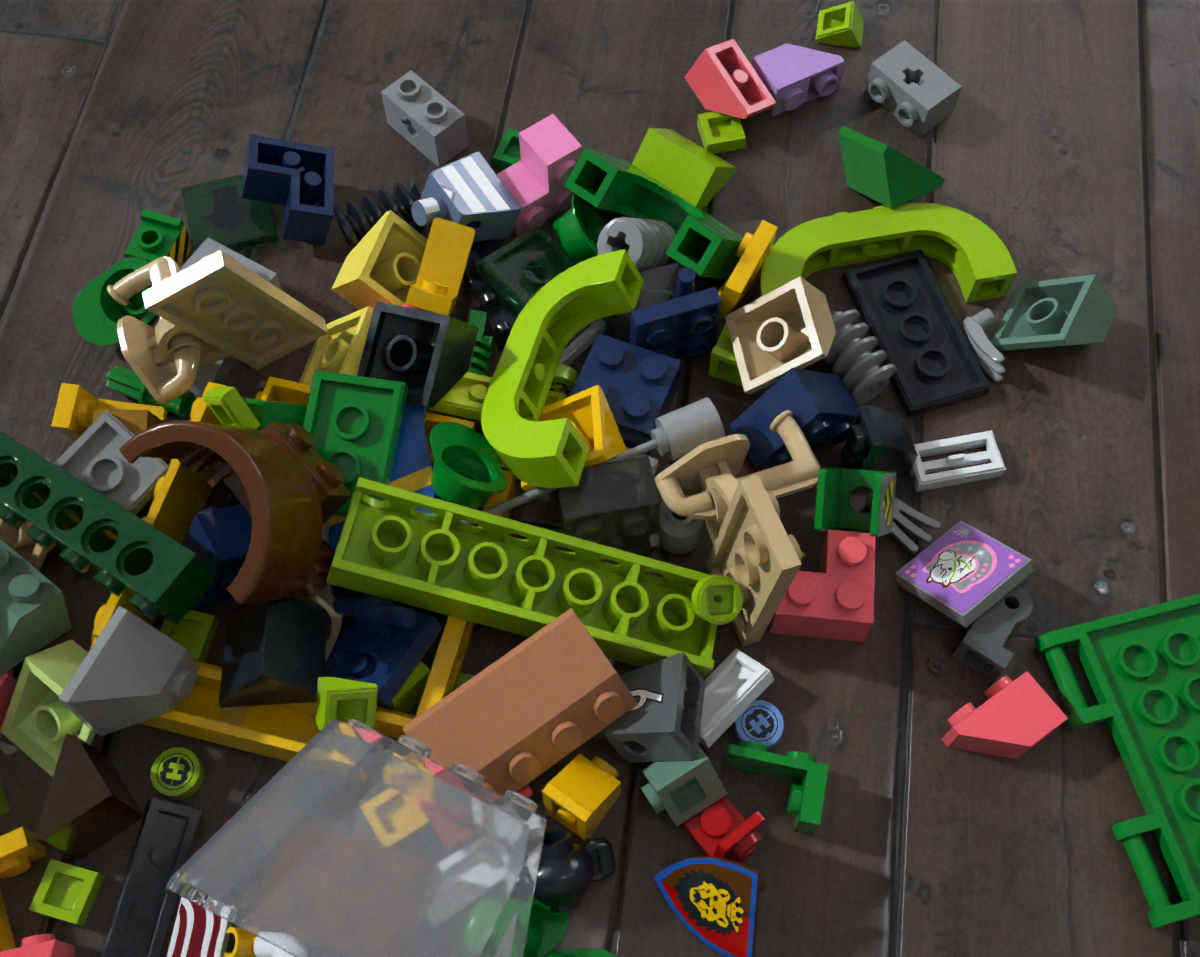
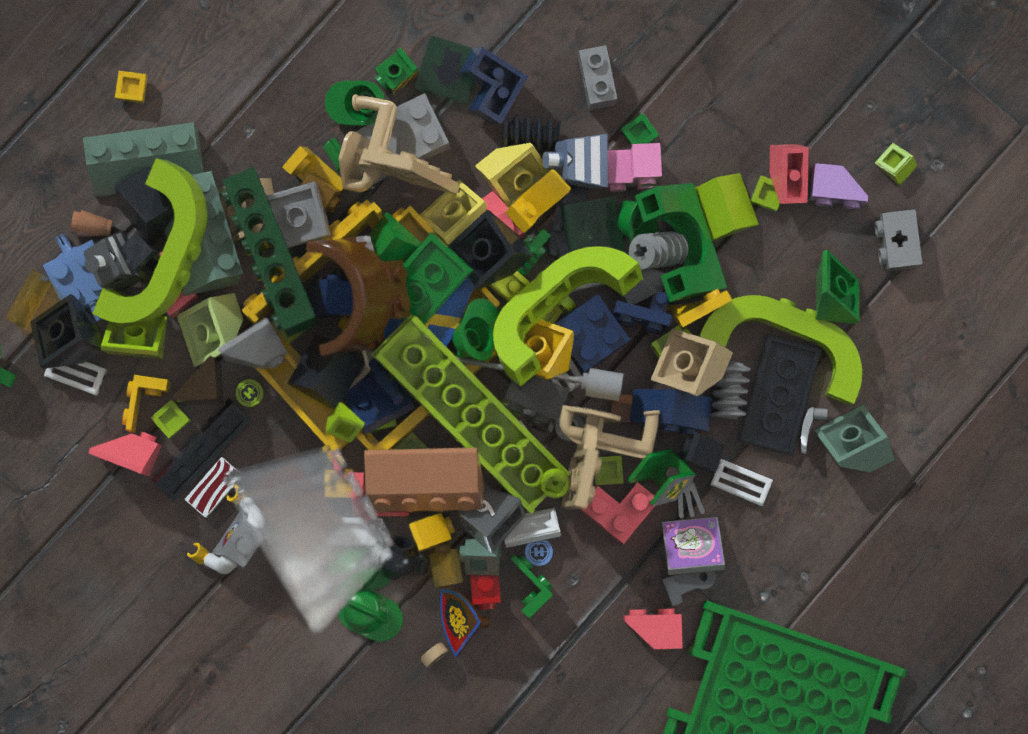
camera: 30 degrees right, 20 degrees up
(230, 407) = (375, 229): lime tile -> none
(642, 833) = (445, 566): none -> clear yellow slope

